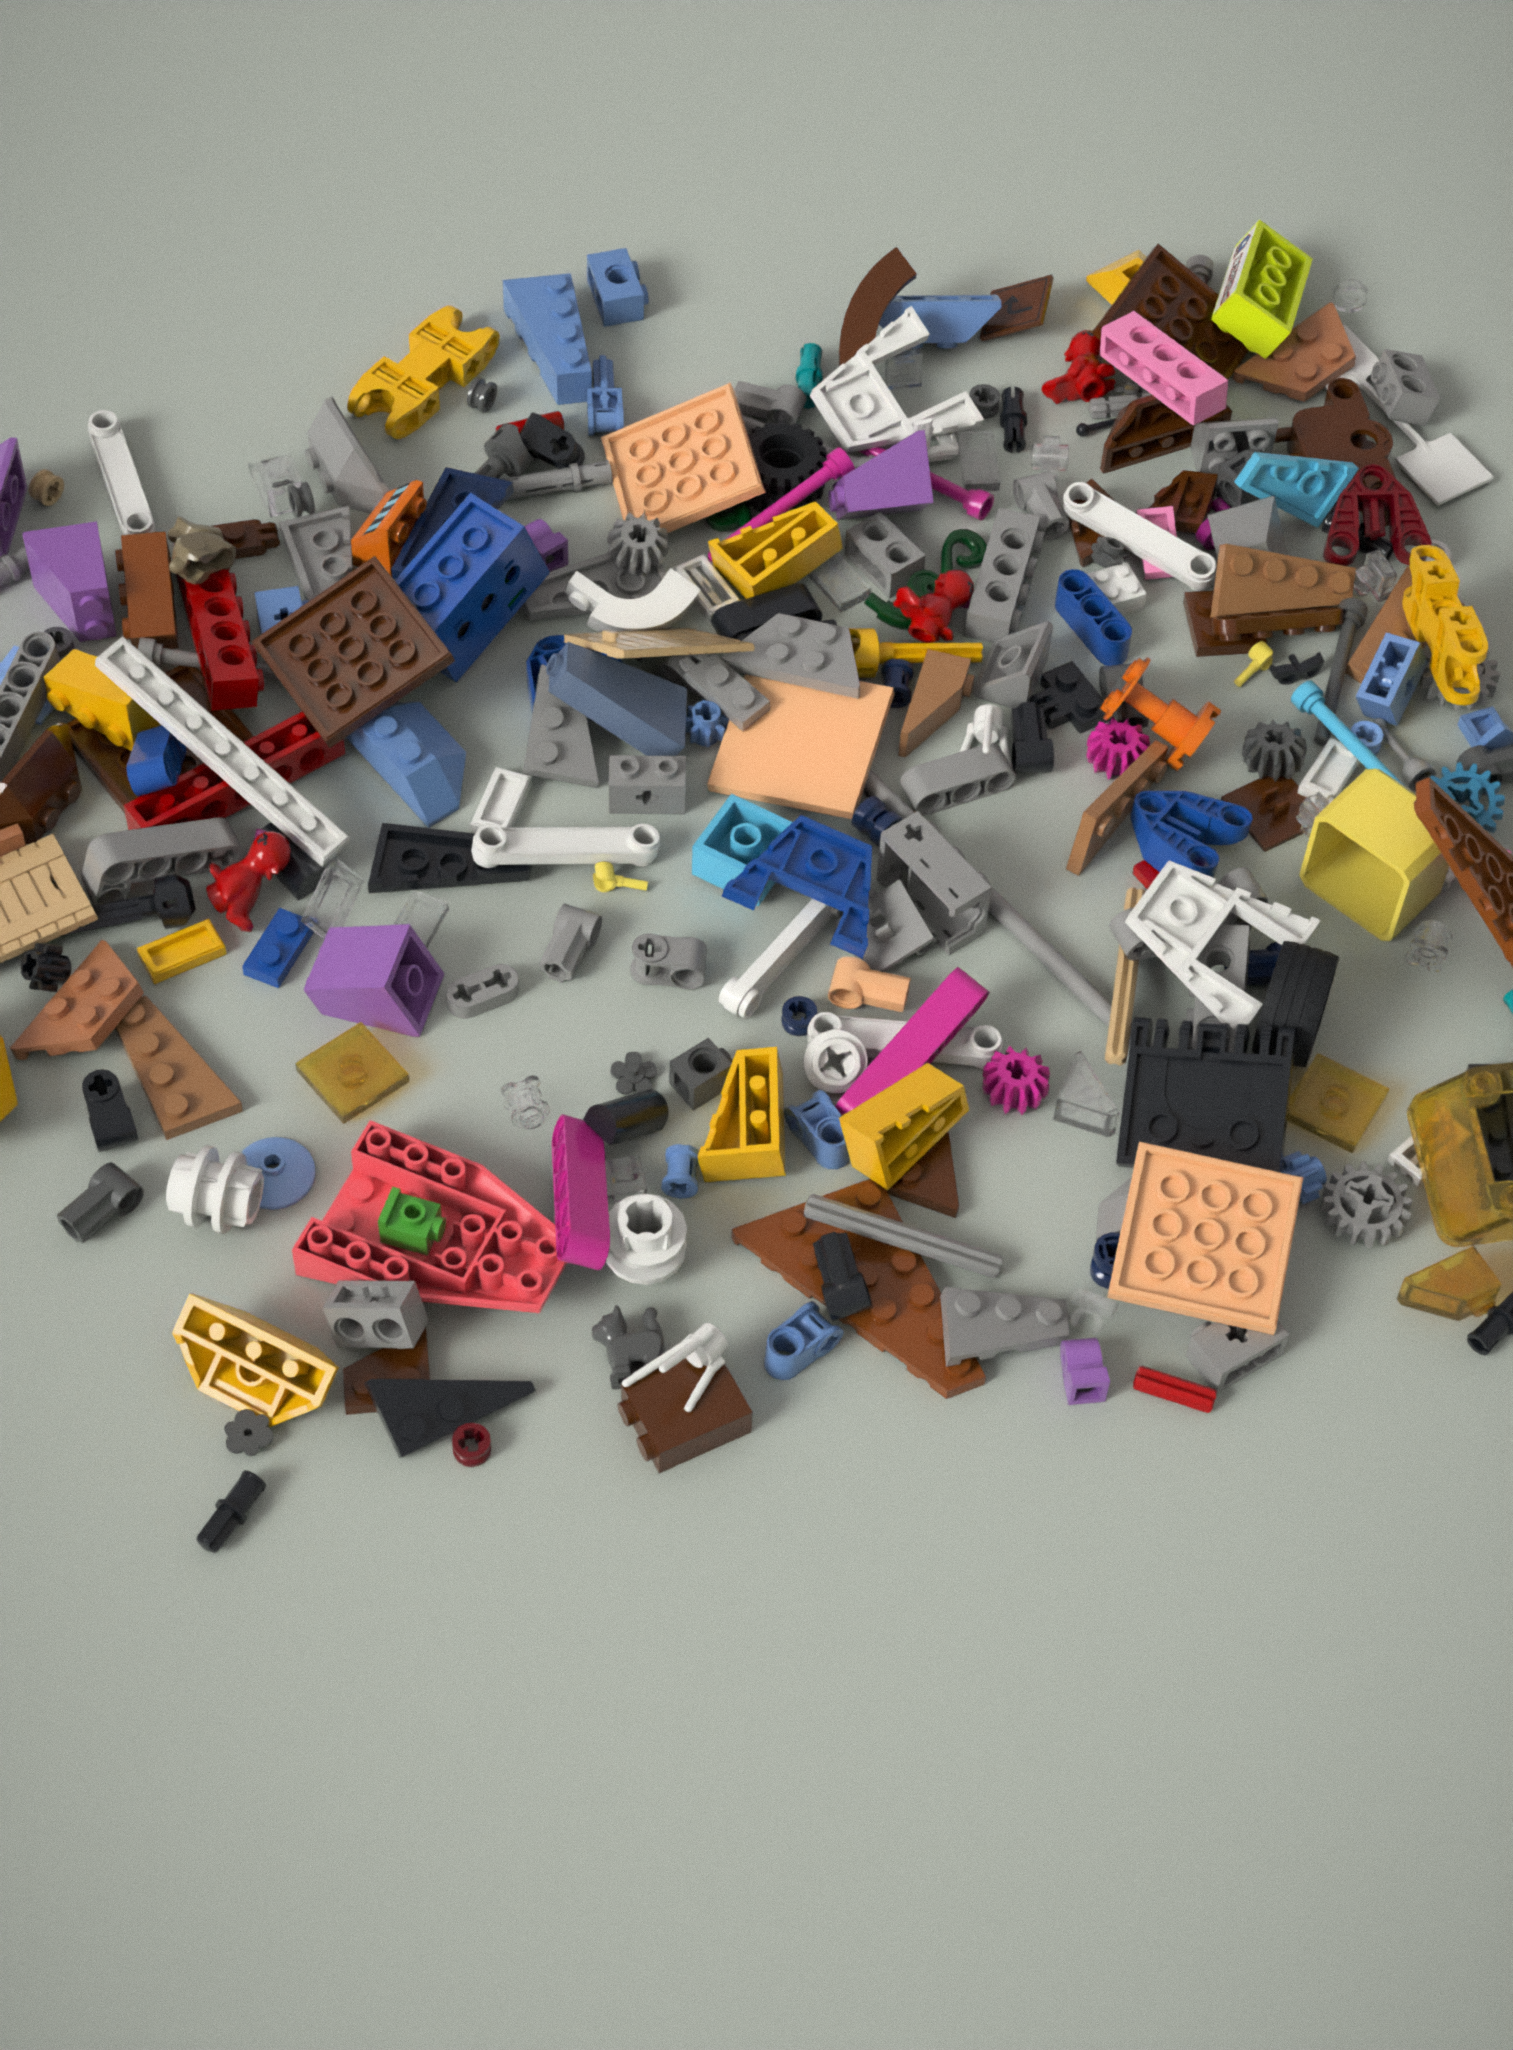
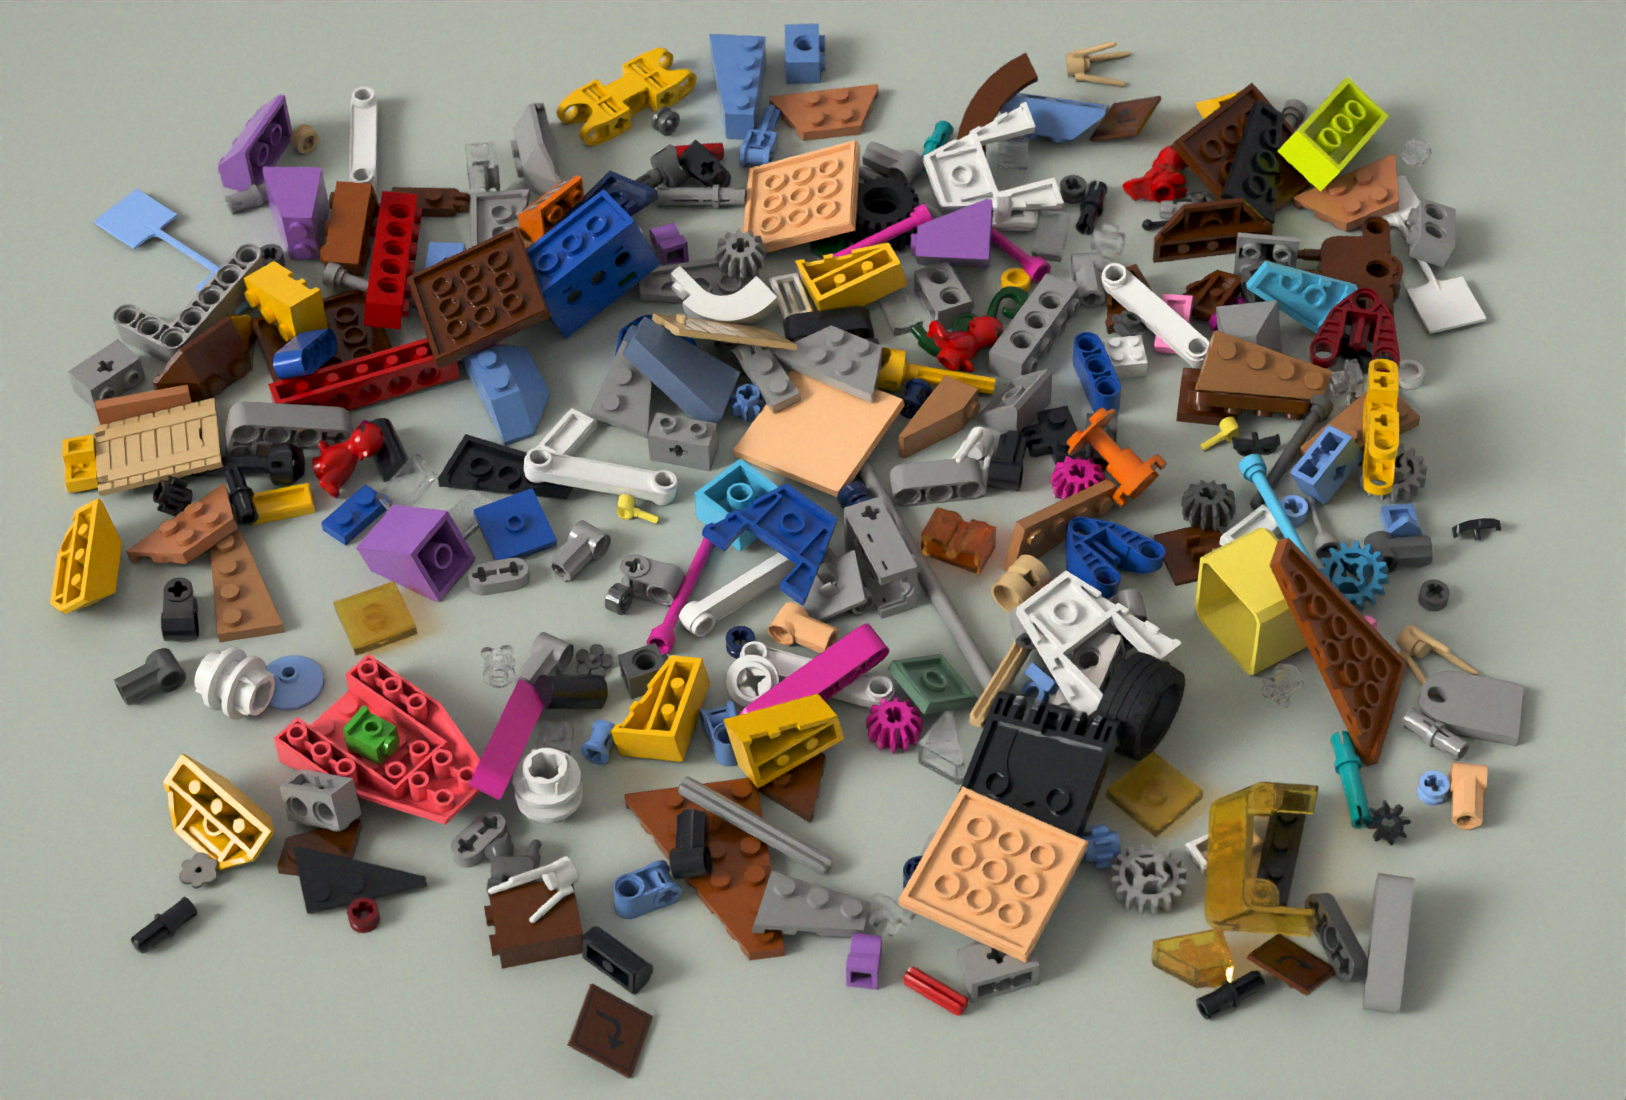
camera: 20 degrees right, 5 degrees down
(134, 952) = (241, 496): none -> black axle
(198, 551) = (392, 203): dark tan animal -> none
(222, 751) = (354, 356): white tile -> none
(482, 926) = (515, 526): none -> blue plate
(570, 1316) = (477, 837): none -> light grey beam
(579, 1081) = (546, 657): none -> light grey piece
(639, 991) = (619, 598): none -> dark grey axle
(665, 353) = (827, 112): none -> nougat wing
(708, 1023) = (664, 634): none -> dark pink piece
(795, 1434) = (616, 960): none -> black brick
(822, 1522) = (610, 1030): none -> reddish brown piece
(939, 247) = (1079, 63): none -> tan plant
(957, 518) = (1016, 277): none -> yellow tile
(1008, 846) = (957, 541): none -> clear orange brick
(1043, 1022) = (932, 683): none -> sand green tile
(1100, 884) = (1020, 582): none -> tan wheel
(1164, 368) = (1214, 182): bright pink brick -> none
(1165, 995) = (1041, 681): none -> medium blue tile
(1188, 313) = (1256, 161): none -> black wing

